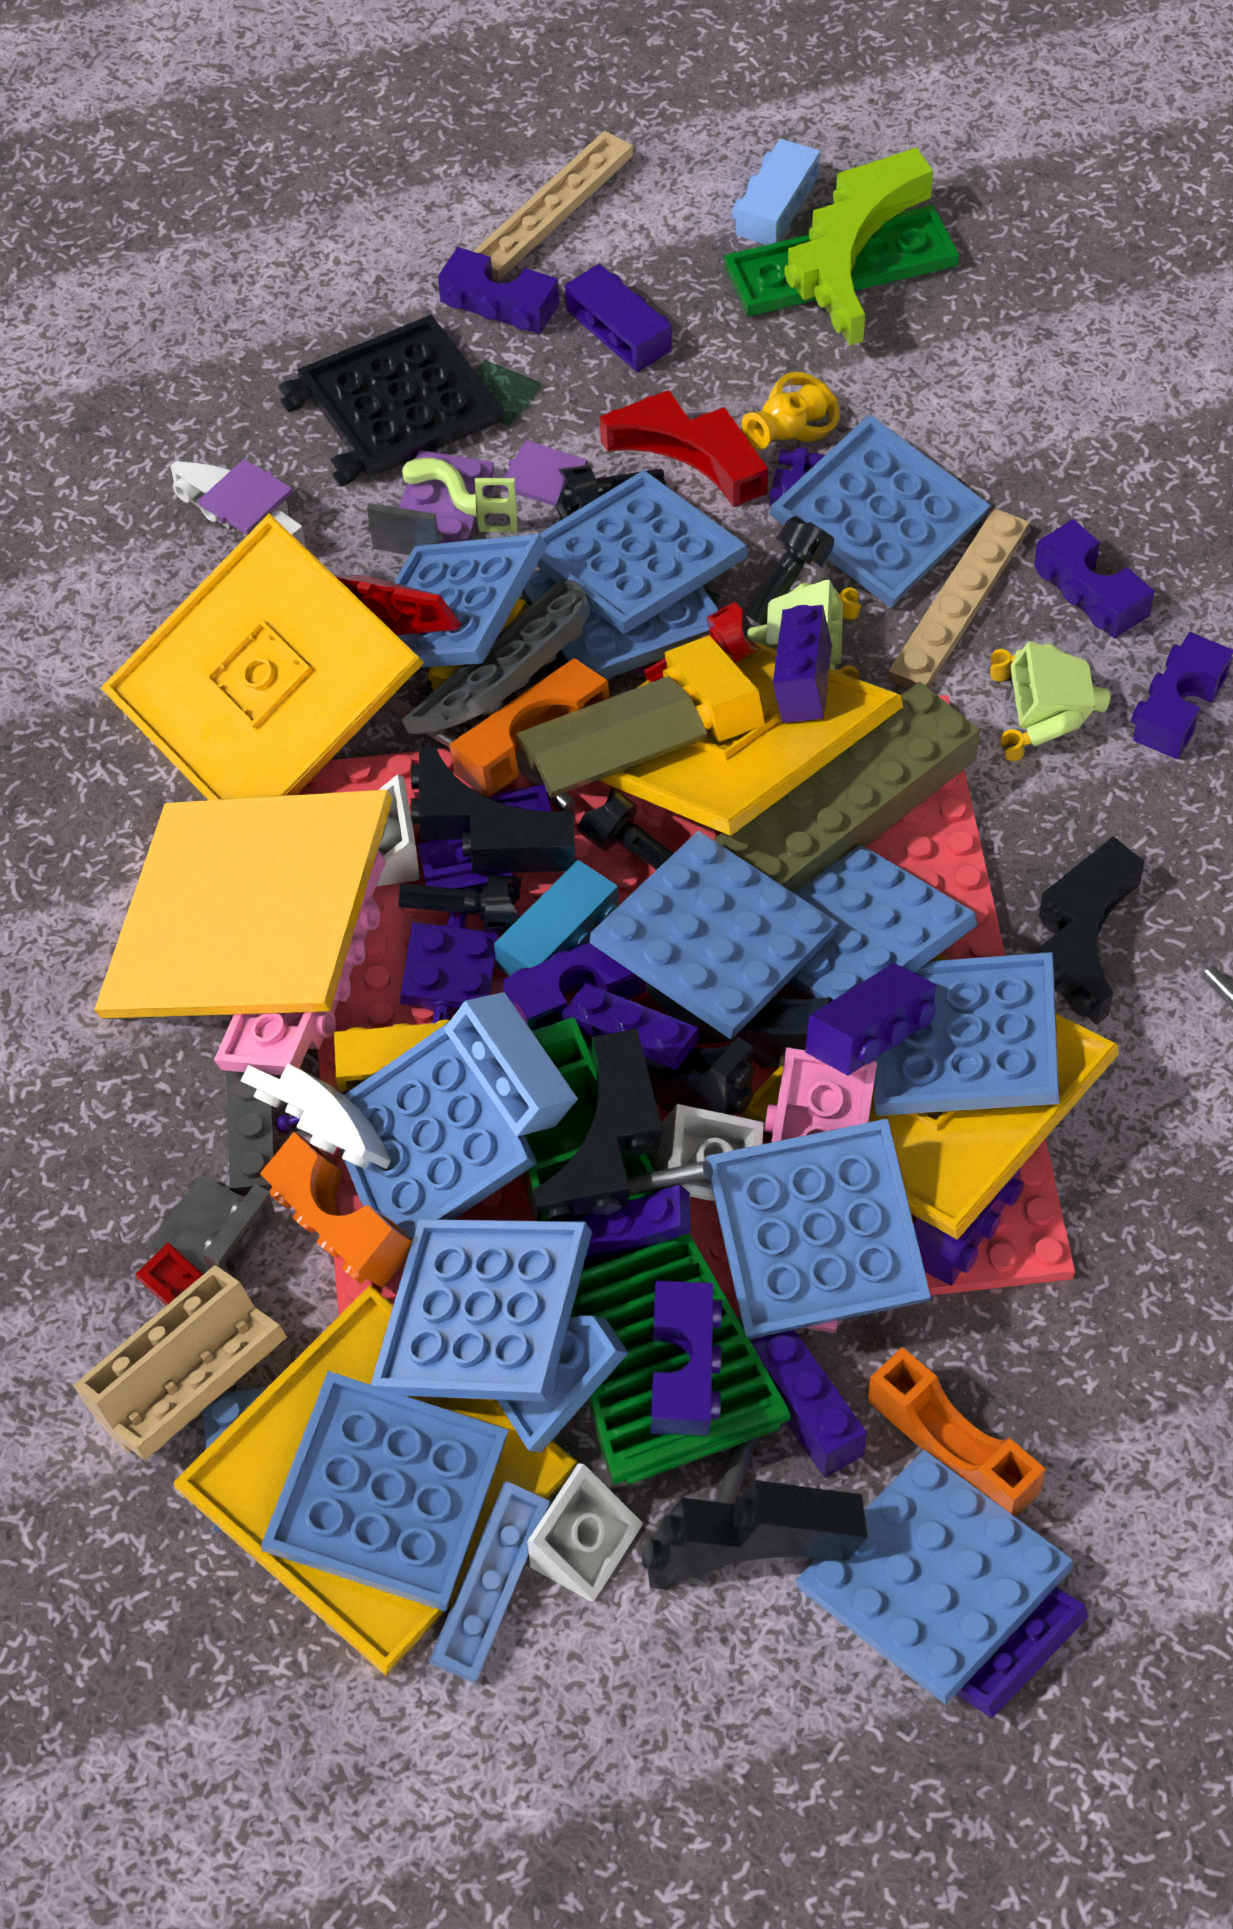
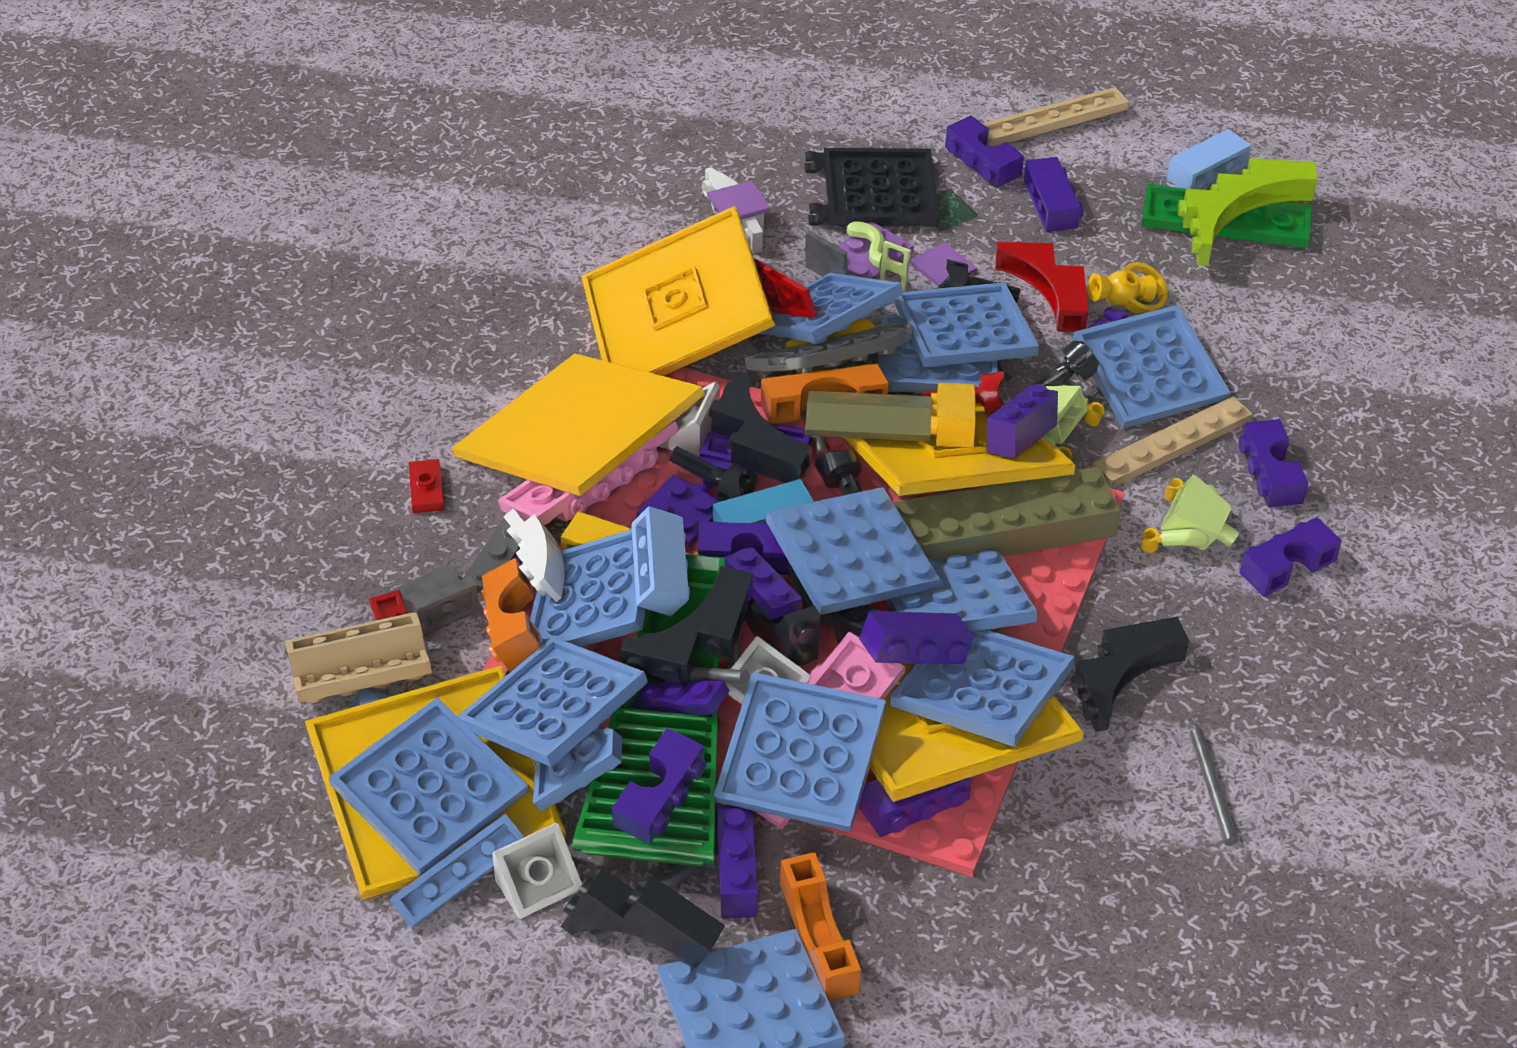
camera: 25 degrees right, 10 degrees down
(94, 1077) = (426, 486): none -> red plate

